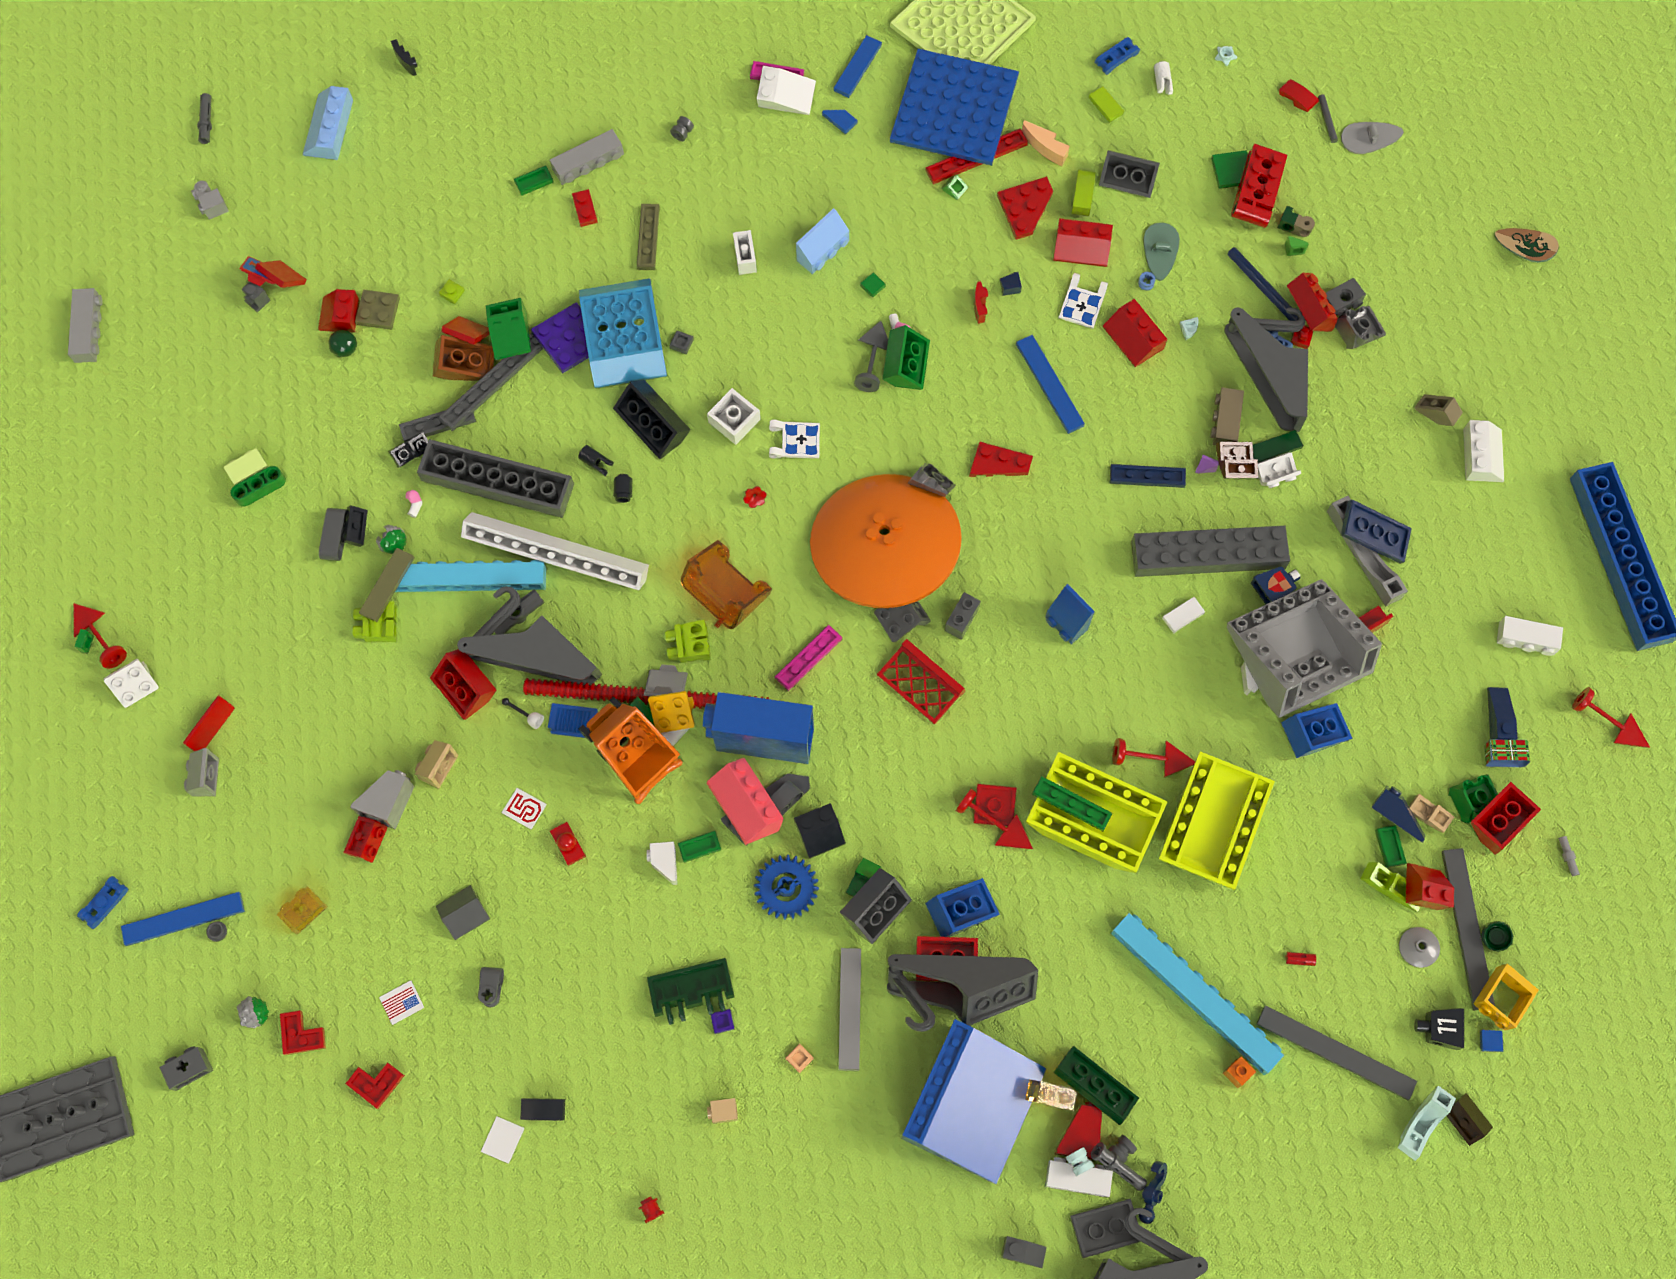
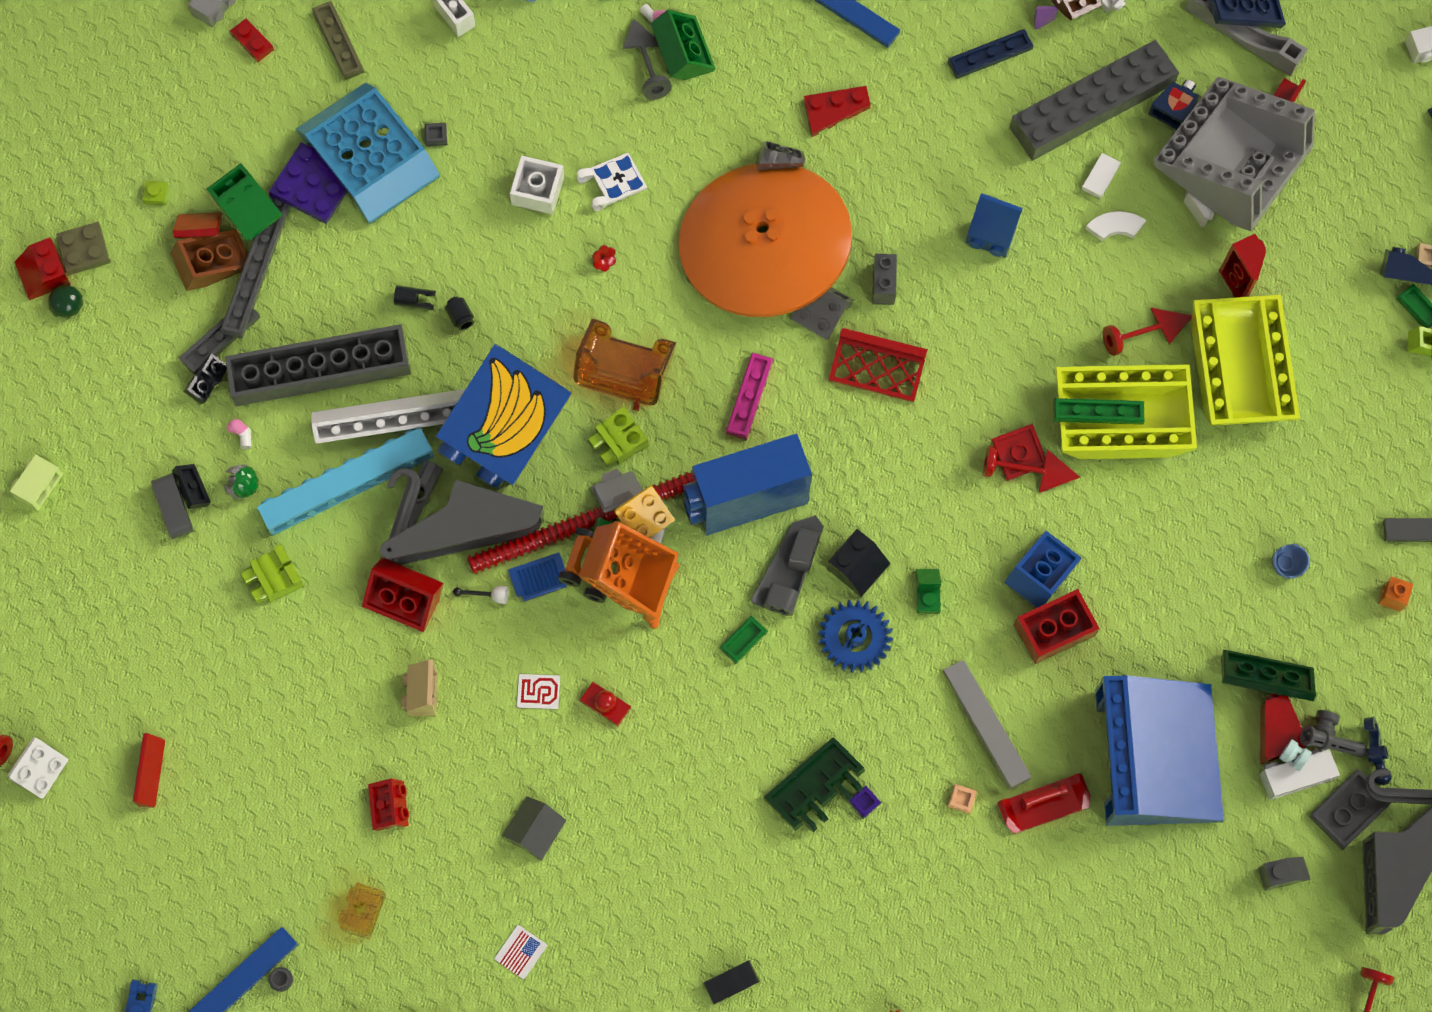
camera: 30 degrees left, 0 degrees up
(202, 773) = (171, 824): light grey slope -> none
(267, 486) = (58, 505): green beam -> none
(385, 799) = (389, 751): light grey slope -> none
(386, 585) = (265, 530): olive tile -> none
(490, 982) = (606, 883): dark grey piece -> none
(533, 180) = (179, 35): green tile -> none
(604, 582) = (502, 417): none -> brick
(651, 418) = (449, 227): black slope -> none
(664, 860) = (716, 671): white slope -> none
(723, 1111) = (916, 889): tan brick -> none
(745, 801) = (769, 568): coral slope -> none
(861, 1096) = (1045, 804): none -> red piece
(876, 905) = (958, 608): dark grey brick -> none
(972, 986) = (1107, 637): dark grey piece -> none
(1051, 1095) = (1231, 706): clear yellow brick -> none
(1166, 1001) = (1290, 561): none -> medium blue hair
(1174, 659) = (1115, 223): none -> white tile
(1197, 994) = (1317, 539): medium azure brick -> none
(1256, 741) = (1243, 265): none -> red slope
(1300, 958) = (1394, 456): red piece -> none
(1316, 730) = (1290, 228): blue slope -> none

